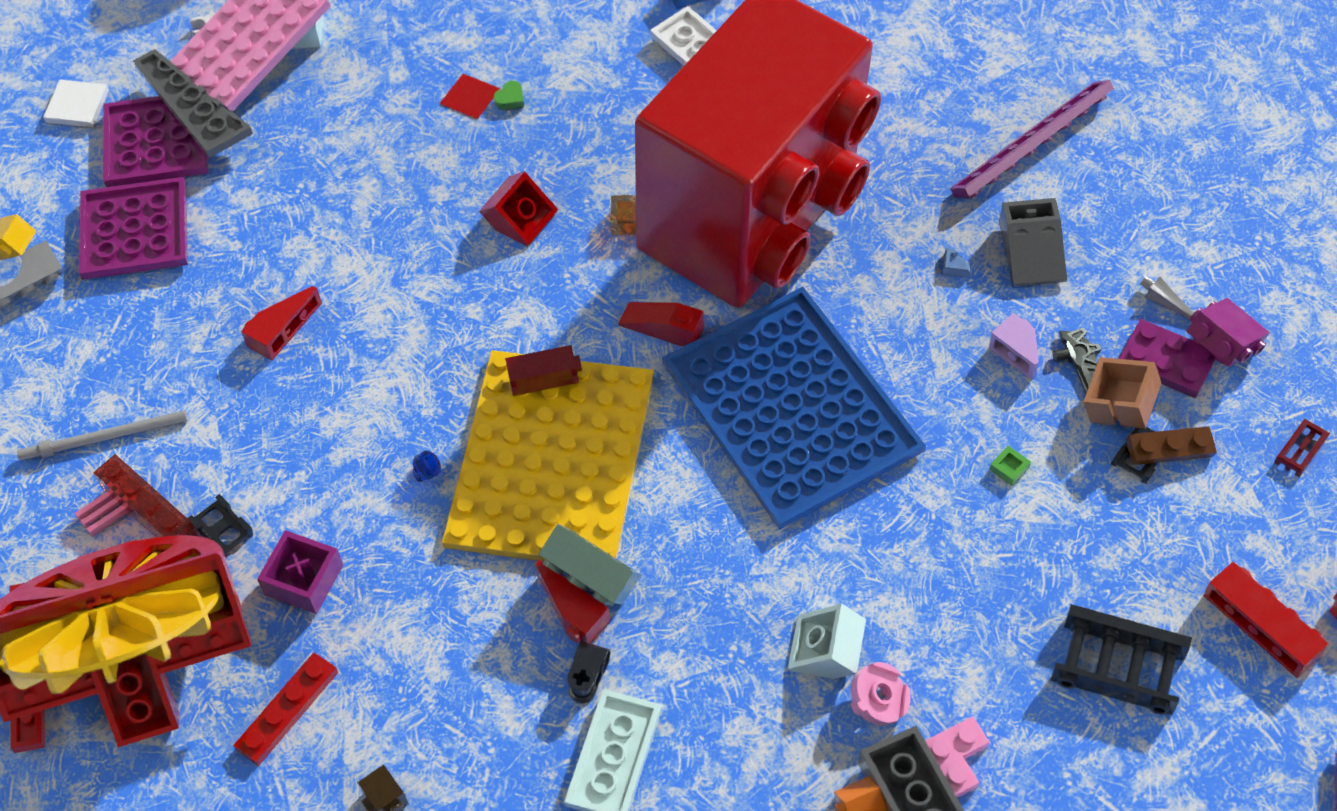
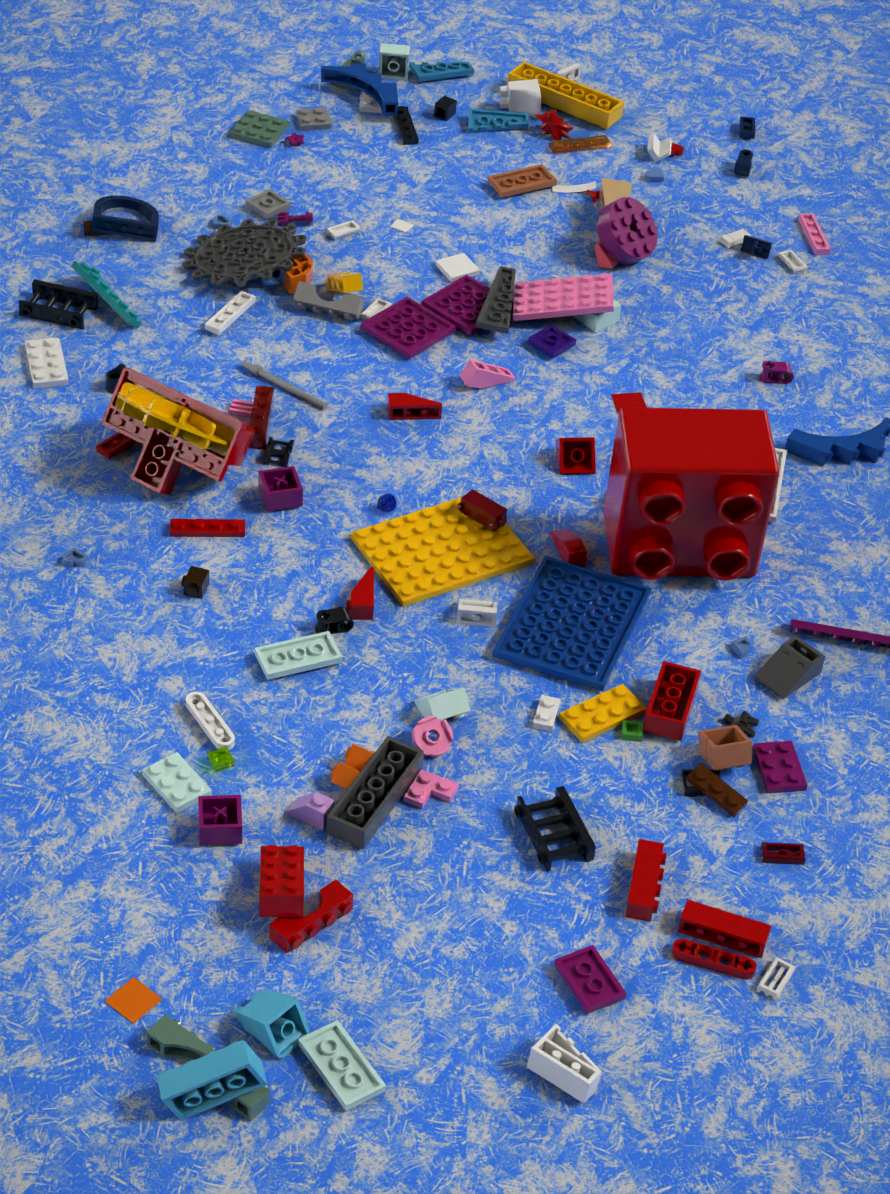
camera: 45 degrees right, 15 degrees down
(65, 240) = (376, 307): none -> white tile
(297, 206) = (484, 375): none -> bright pink slope
(301, 98) = (552, 341): none -> dark purple plate
(588, 566) = (387, 583): sand green brick -> none
(702, 501) = (477, 612): none -> white tile
(918, 536) = (546, 713): none -> white plate
(960, 477) = (602, 713): none -> yellow plate
(1005, 393) = (672, 700): none -> red brick
(1016, 344) = (714, 694): lavender slope -> none
(1161, 293) = (820, 743): light grey piece -> none
(1227, 332) = (819, 776): magenta brick -> none

